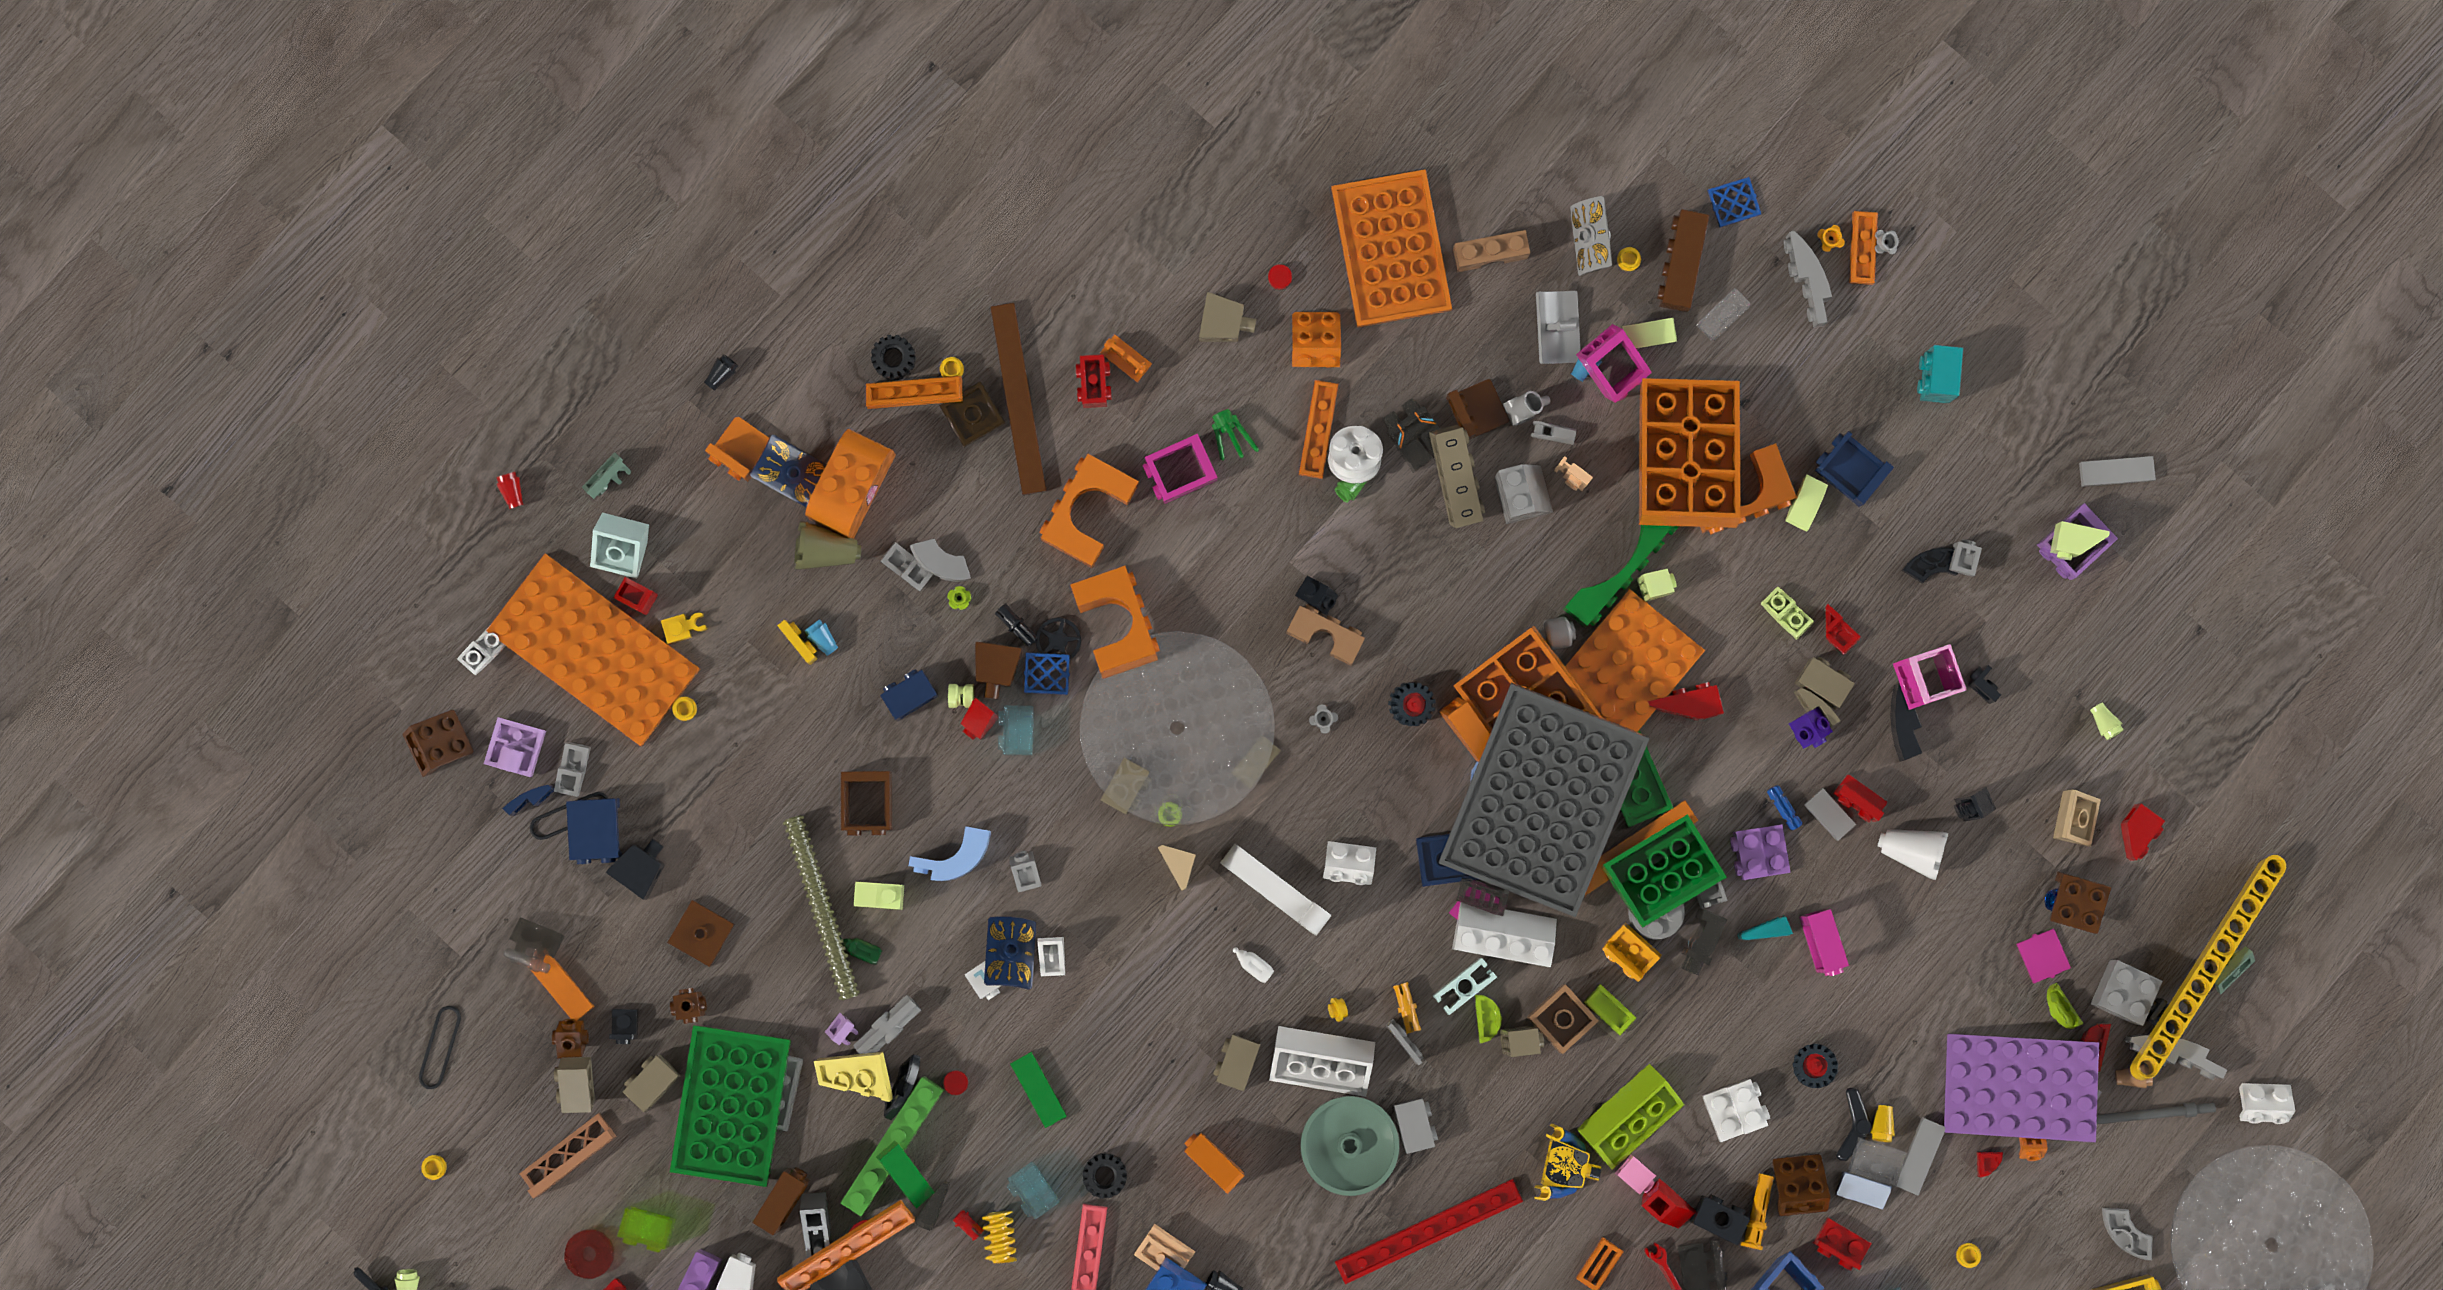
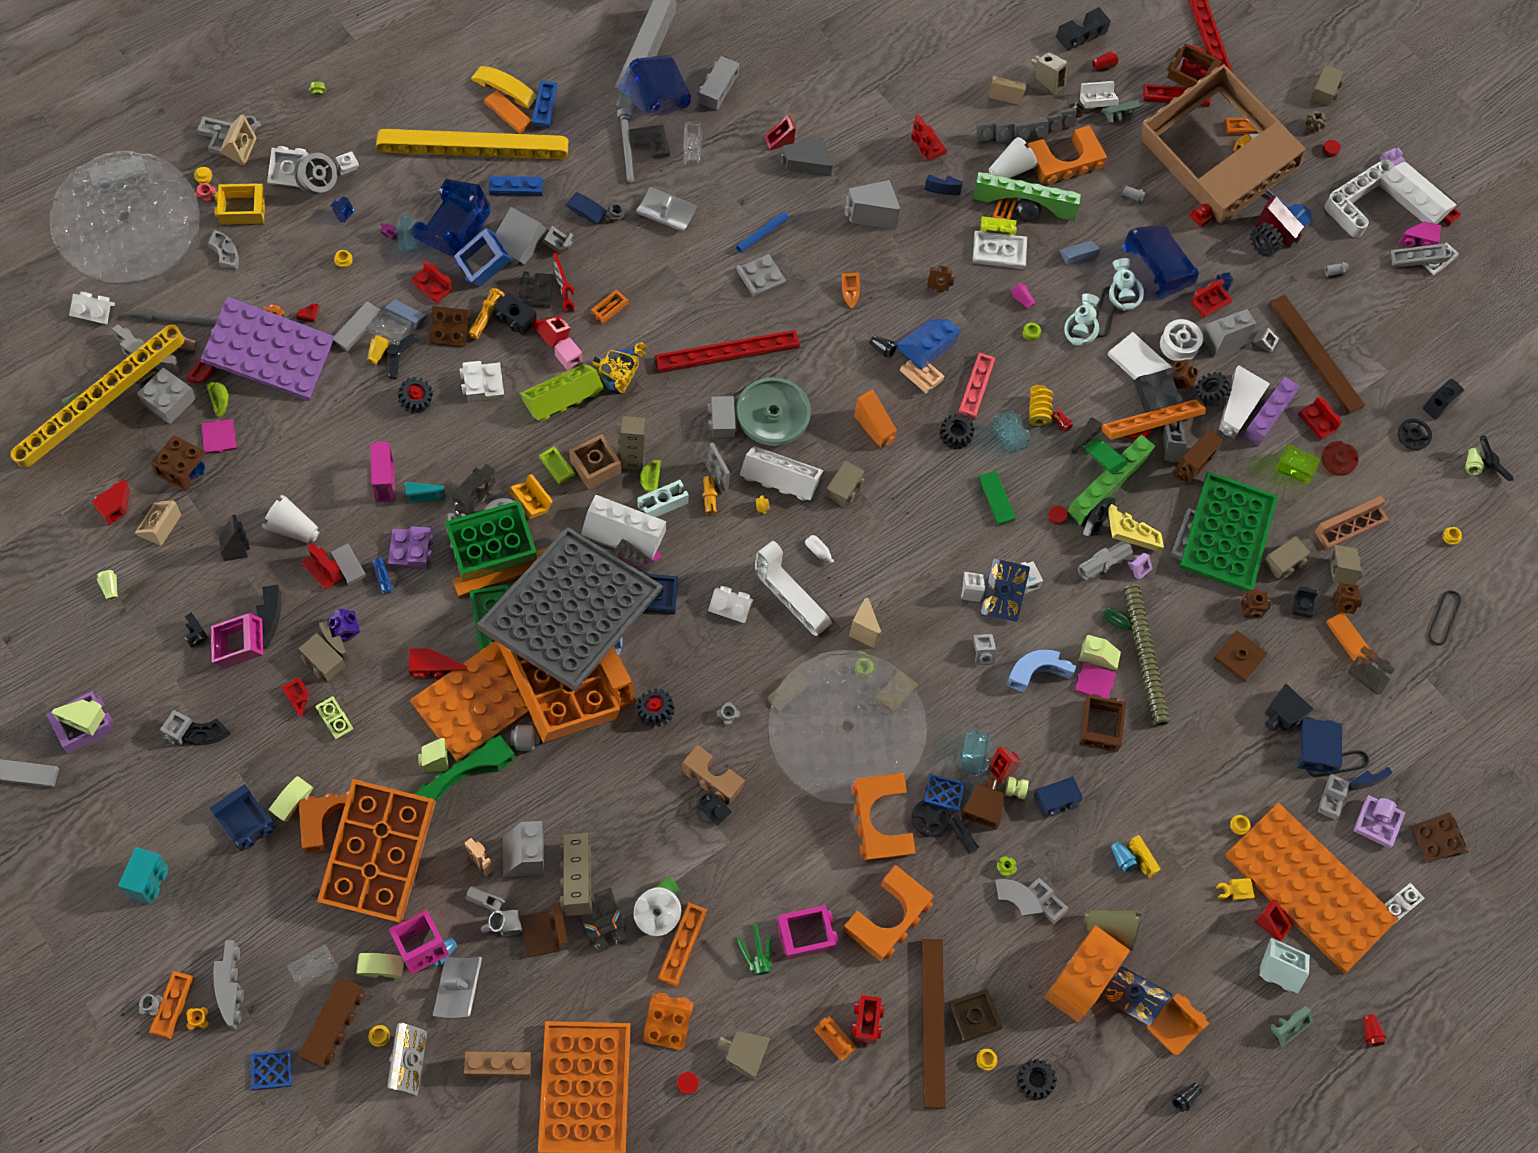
camera: 175 degrees left, 20 degrees down
(880, 859) = (1094, 680): none -> dark pink piece
(914, 392) = (1022, 1044): orange tile -> none

